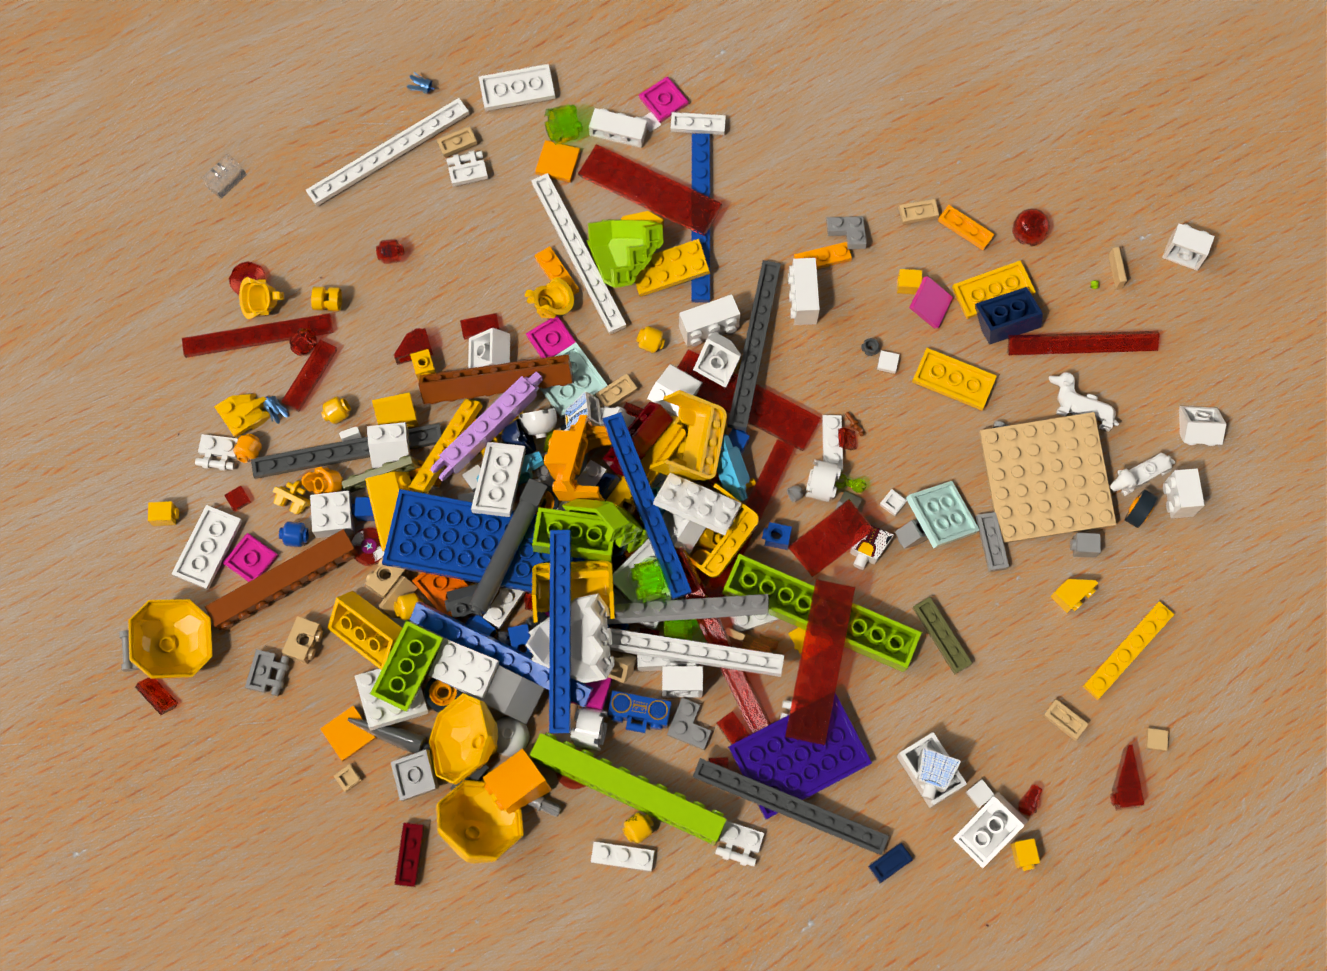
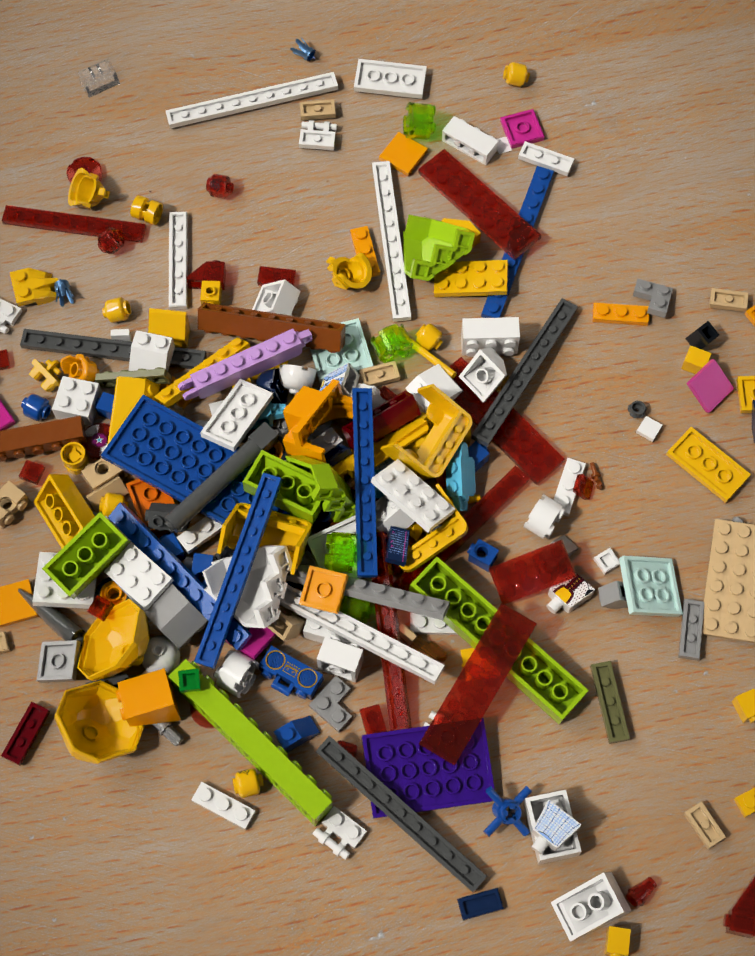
camera: 20 degrees right, 5 degrees down
(247, 448) = (25, 318): light orange head -> none
(309, 375) = (105, 272): clear red plate -> none
(315, 599) = (31, 472): none -> clear red plate
(353, 572) = (74, 458): none -> yellow wheel
(376, 339) = (178, 260): none -> white tile
(436, 711) = (100, 608): none -> clear red tile
(550, 337) = (337, 306): dark pink tile -> none
(552, 753) = (189, 680): none -> green plate
(618, 357) = (392, 343): none -> clear neon green brick
(638, 46) = (516, 74): none -> yellow head
(646, 622) = (323, 589): none -> light orange tile
(654, 357) = (430, 357): none -> yellow bar
(665, 765) = (296, 733): none -> blue slope
(699, 556) = (397, 546): none -> dark blue tile
(794, 493) = (514, 521): light grey hinge -> none
(803, 291) = (589, 337): white brick -> none
(855, 484) = (577, 532): clear neon green arm -> none
(886, 770) = (508, 817): none -> blue bar
(907, 255) = (702, 336): none -> black brick
(980, 793) = (592, 867): white tile -> none

